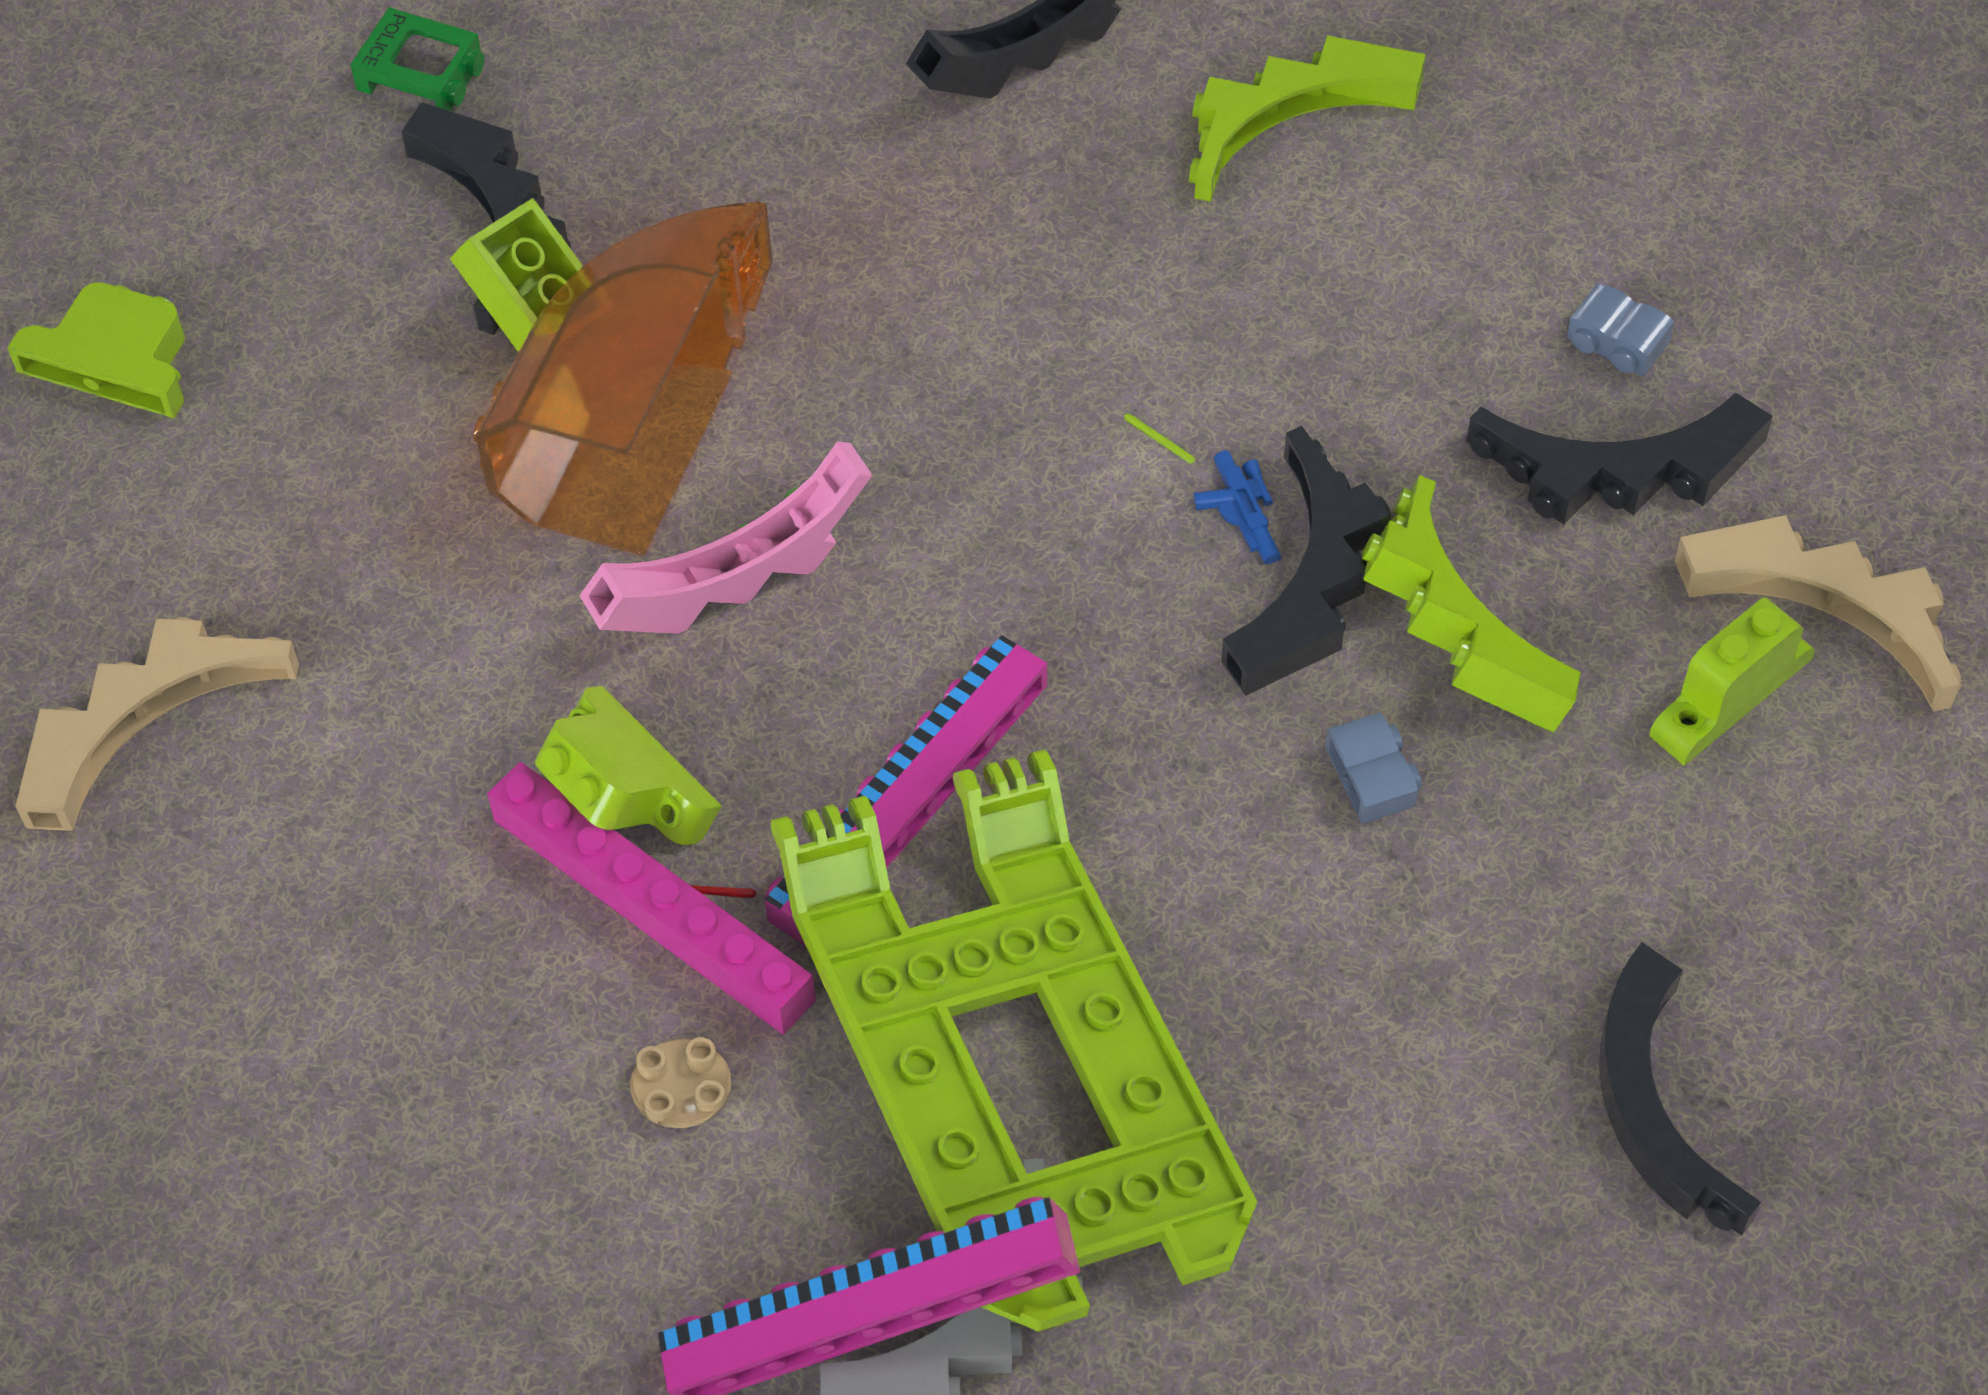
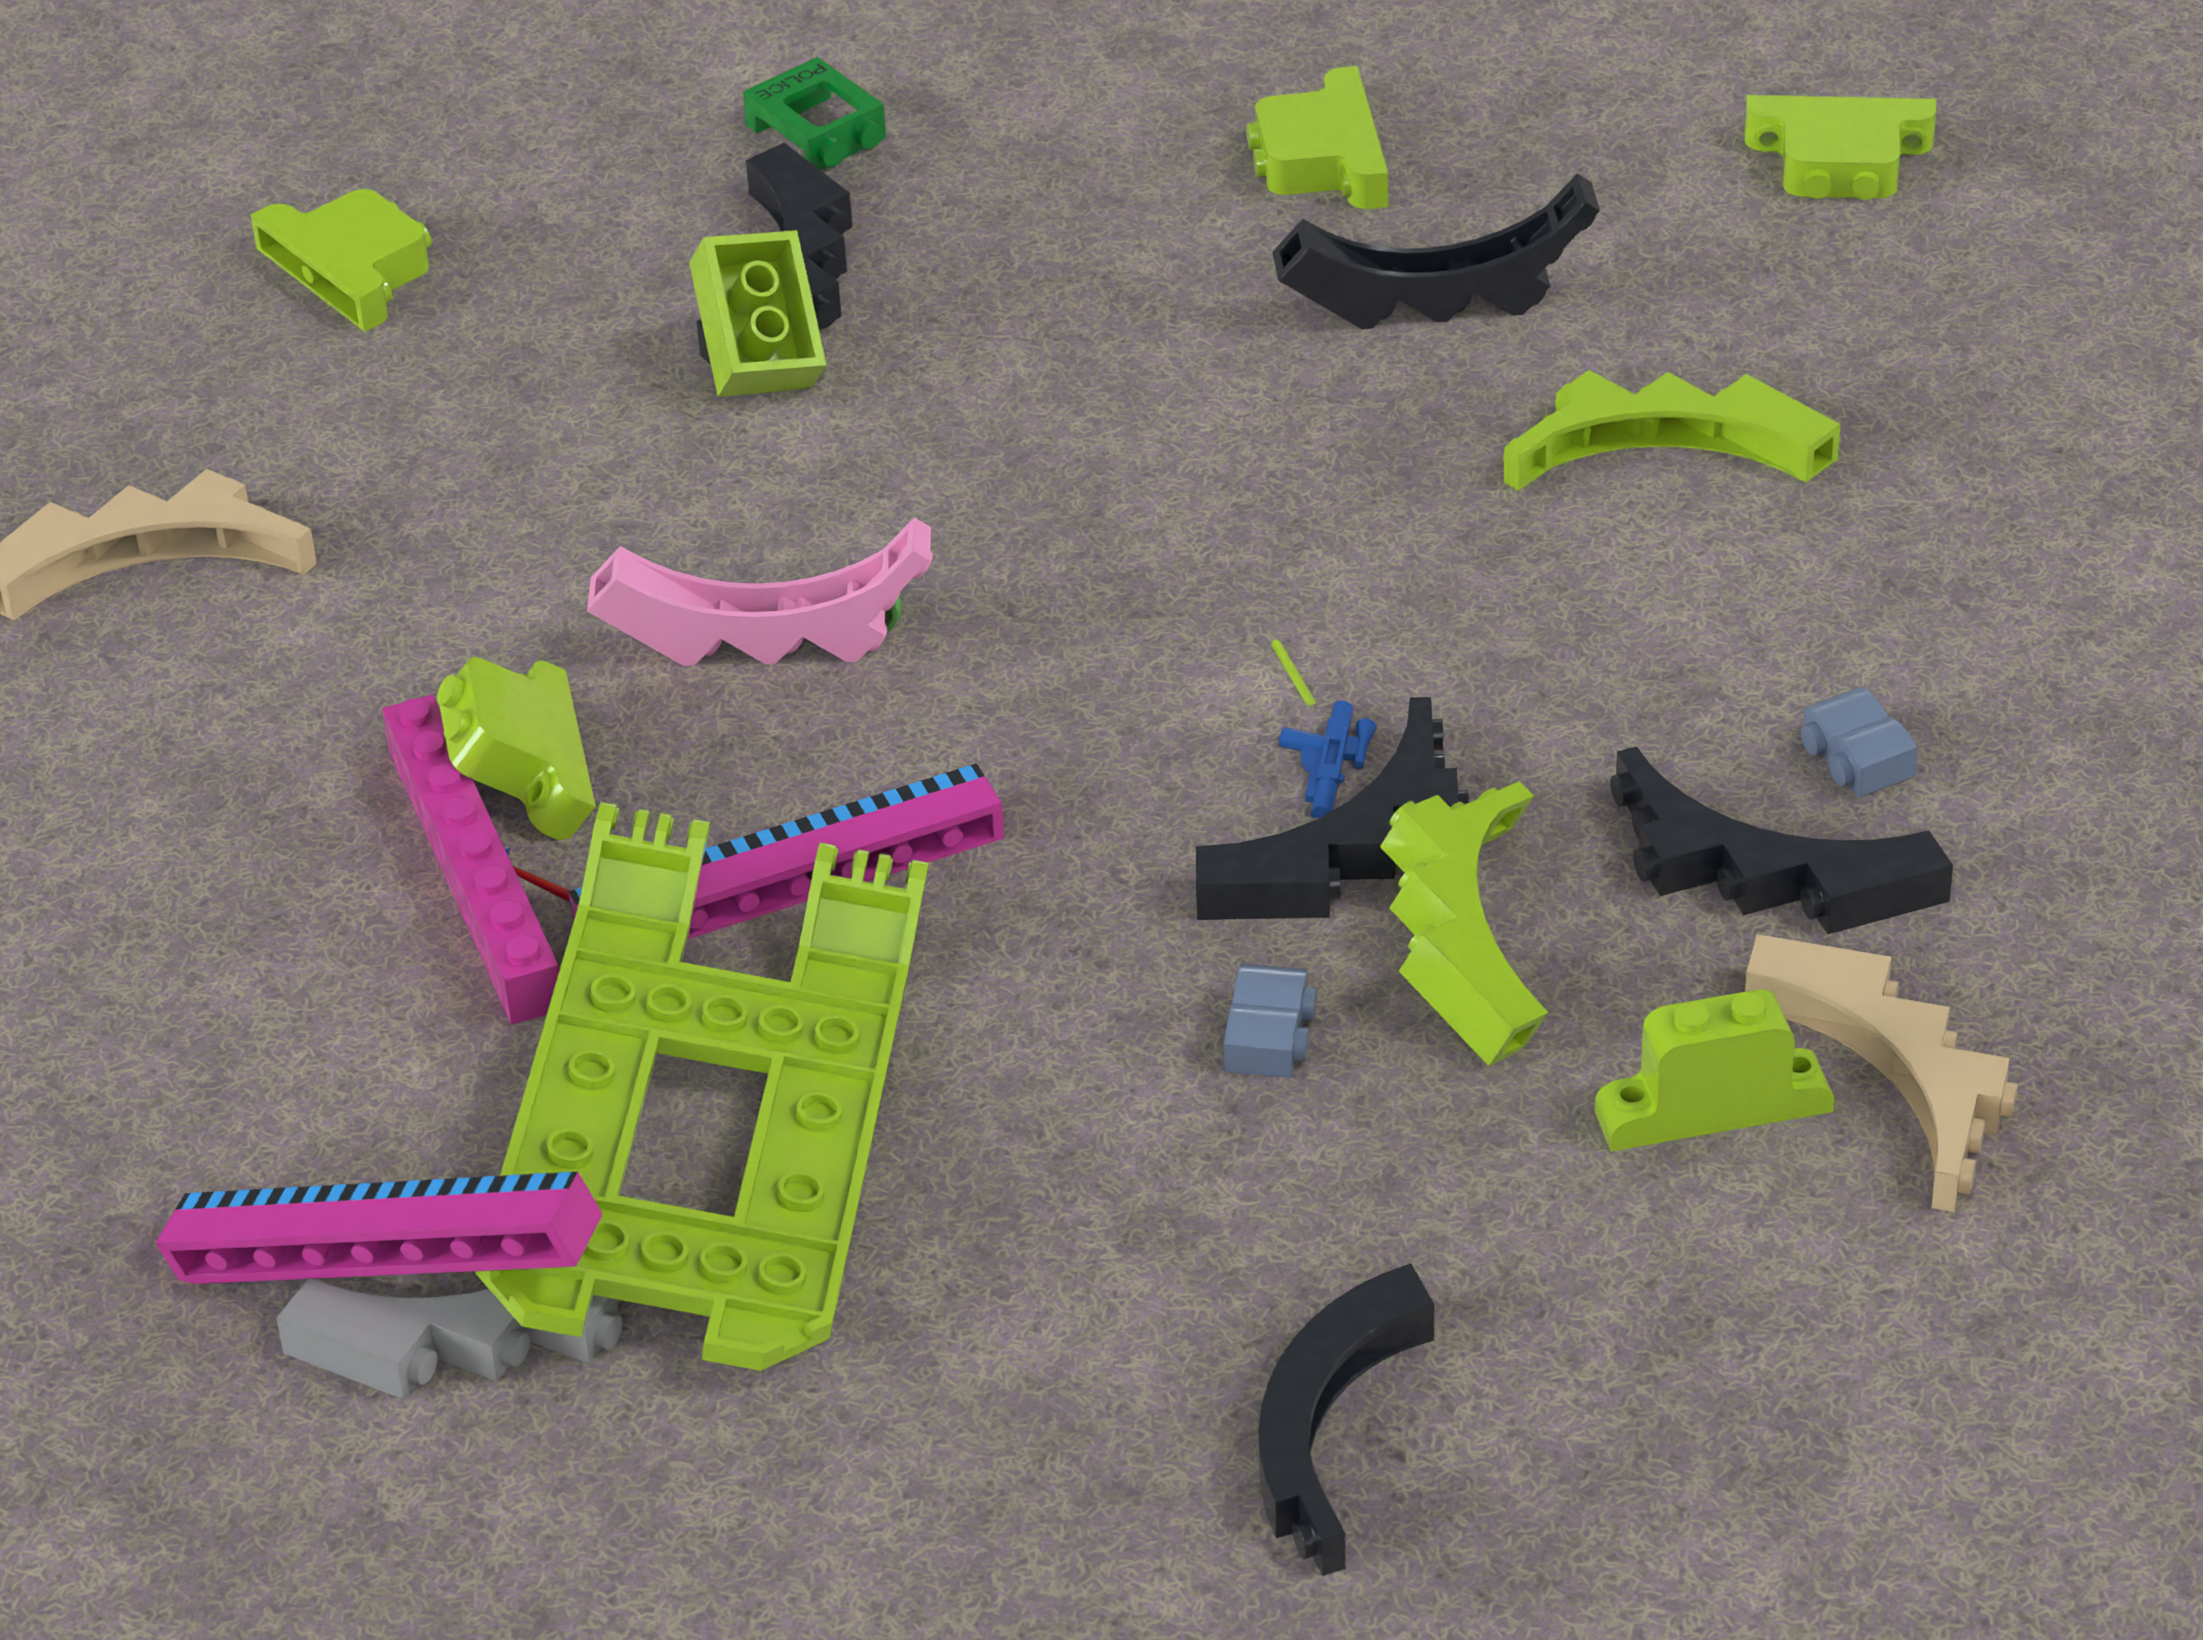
camera: 30 degrees right, 15 degrees down
(625, 377) = (785, 414): clear orange windscreen -> none
(680, 1082) = (381, 1019): tan dish -> none

